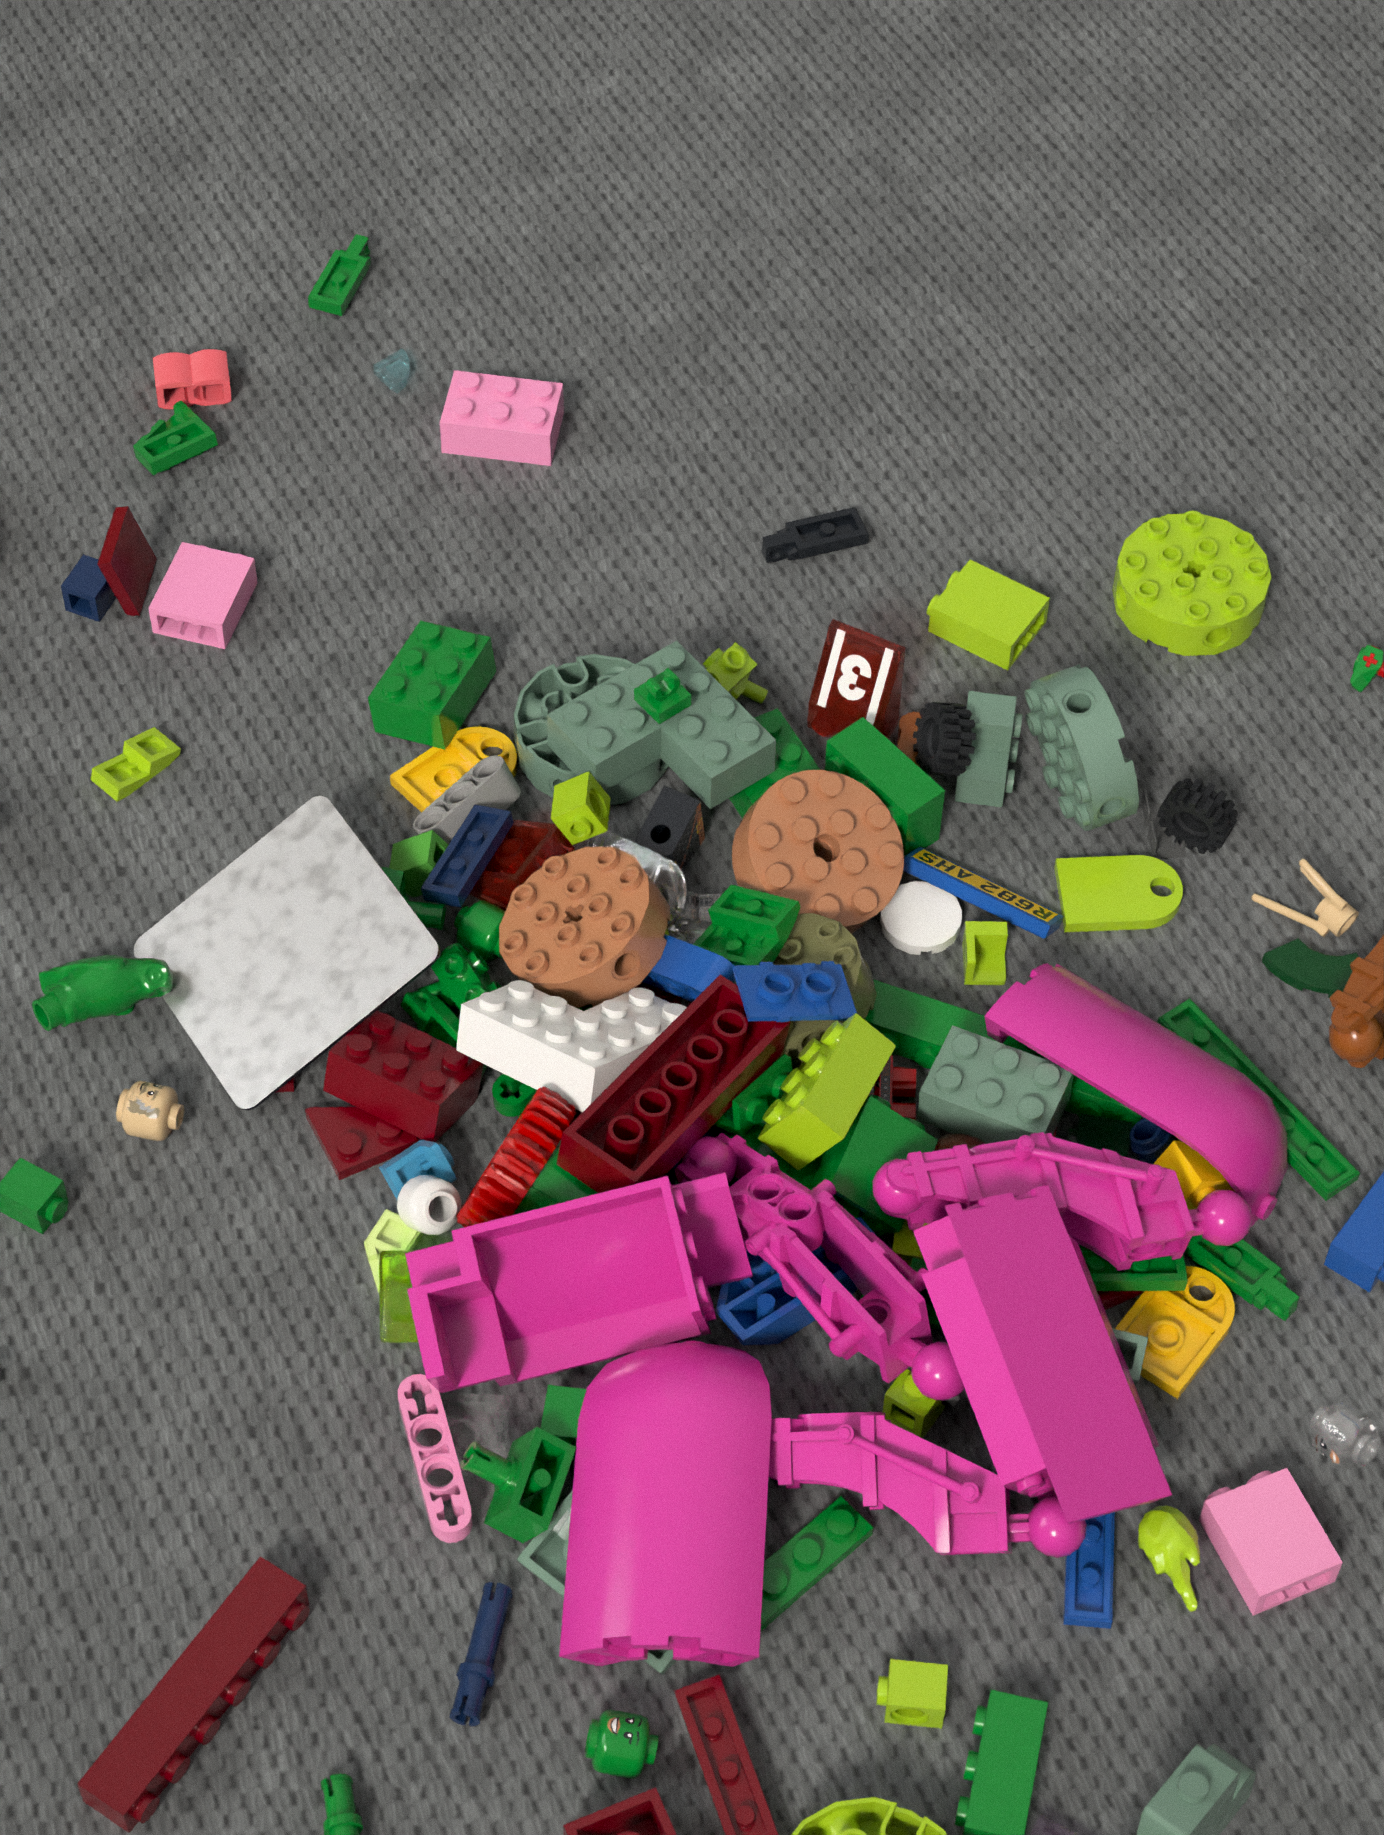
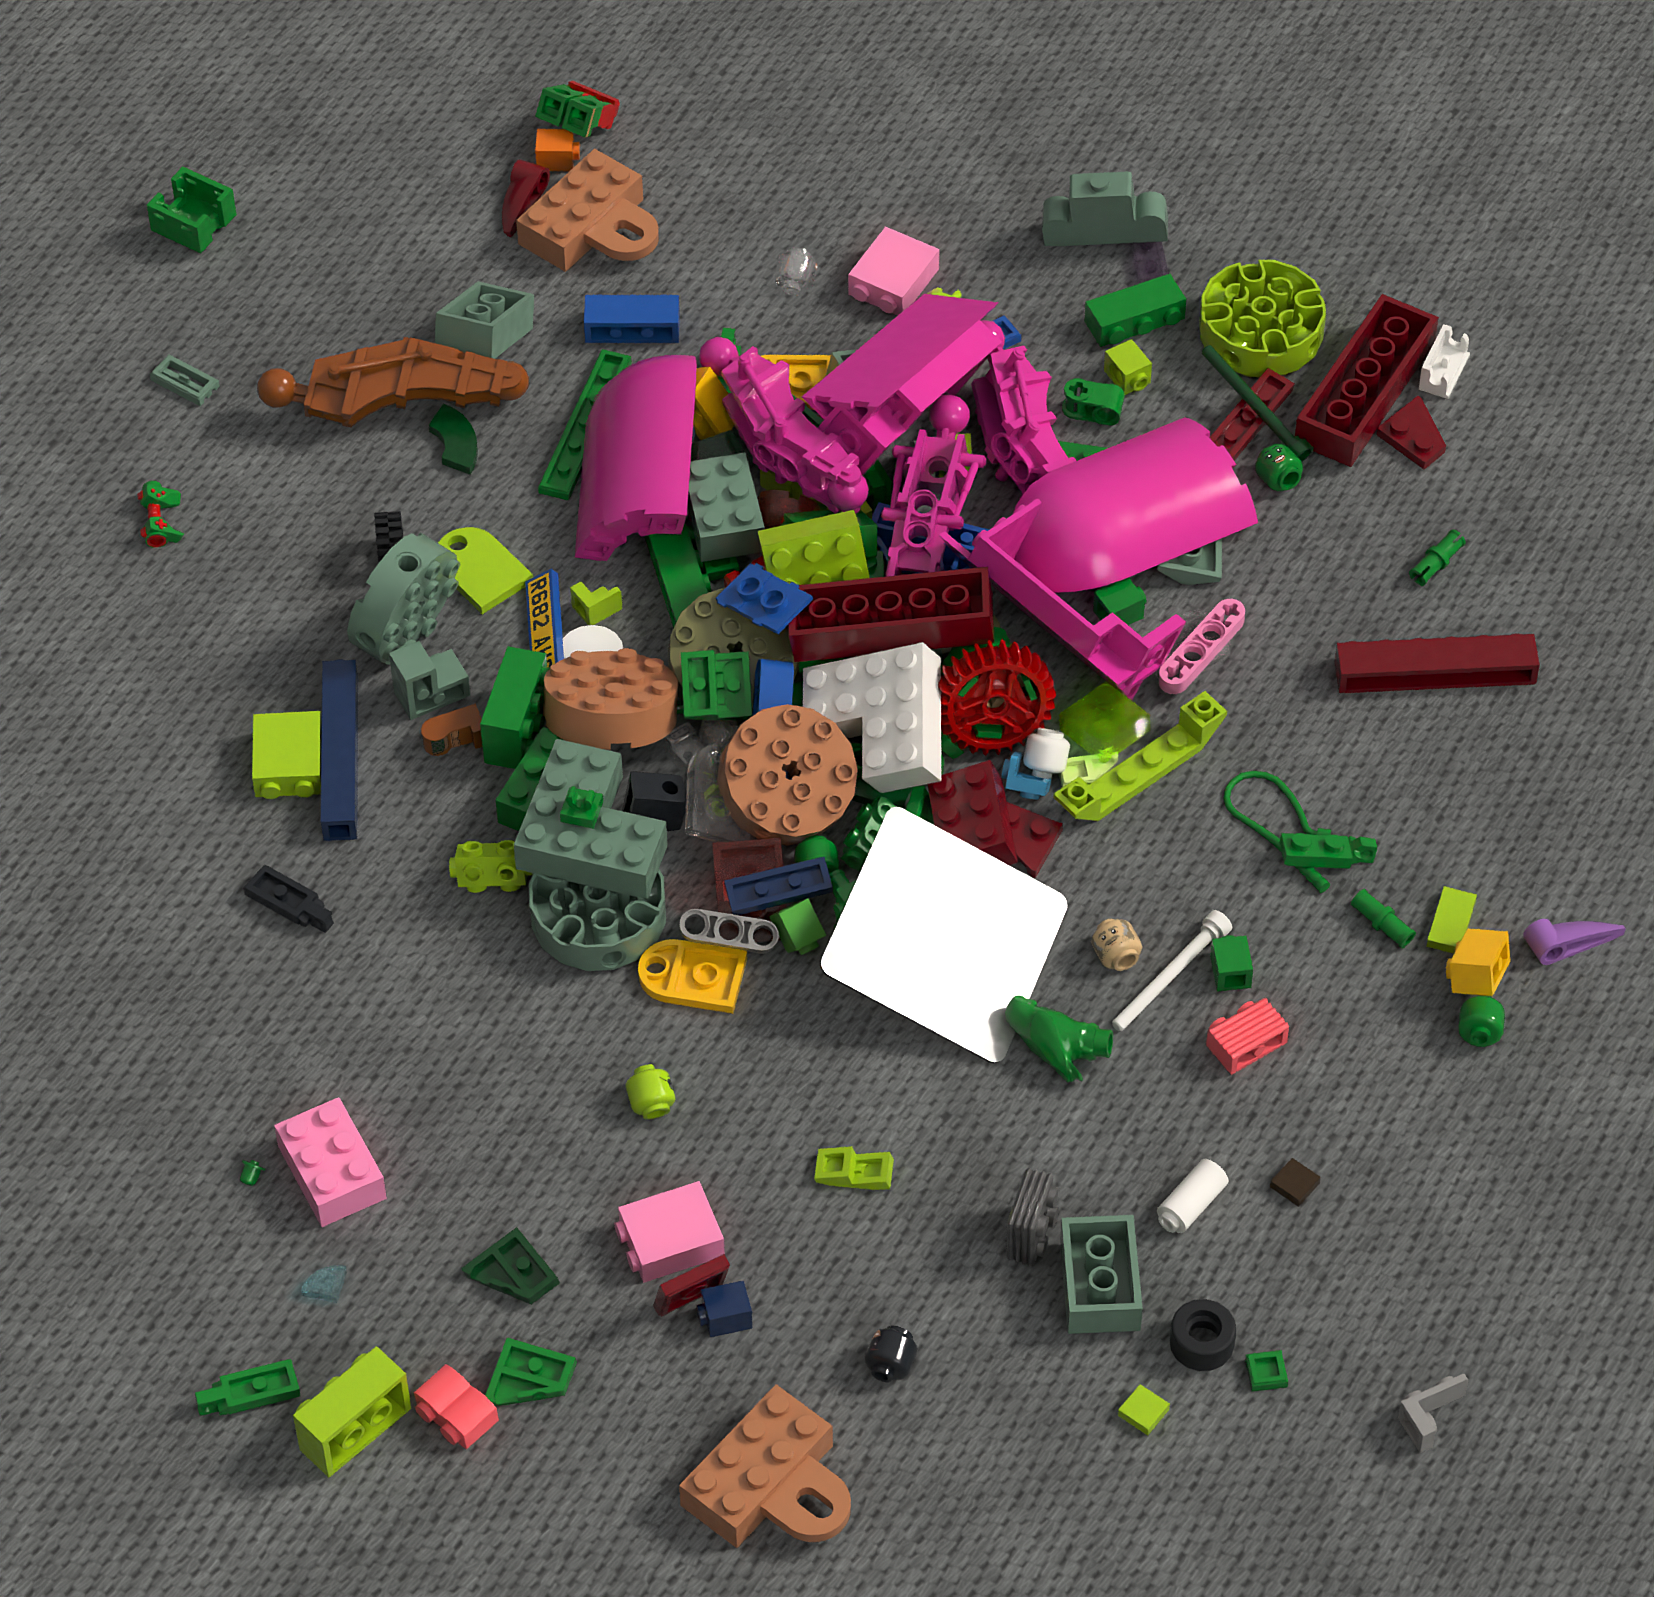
camera: 125 degrees left, 0 degrees up
(75, 1383) = (1326, 850): none -> green hinge
(89, 1217) = (1214, 926): none -> white piece
(100, 1360) = (1310, 873): none -> green piece
(245, 303) = (352, 1411): none -> lime brick
(279, 483) = (513, 1269): none -> dark green wing
(340, 1279) = (1196, 726): none -> lime slope
(356, 660) = (650, 1092): none -> lime head
(432, 684) = (638, 1021): green brick -> none
(477, 1671) = (1300, 555): dark blue pin -> none
(524, 1483) = (1179, 587): green brick -> none
(555, 376) = (251, 1172): none -> green piece
(580, 808) = (693, 834): lime brick -> none
(631, 1784) = (1298, 446): none -> dark green piece
(855, 680) = (446, 765): clear red slope -> none
(884, 1620) = (1096, 401): none -> green piece
(944, 738) = (441, 678): black tyre -> none
(946, 644) = (339, 750): none -> dark blue brick
(1191, 583) = (163, 655): lime brick -> none
(1333, 911) = (403, 451): tan plant -> none

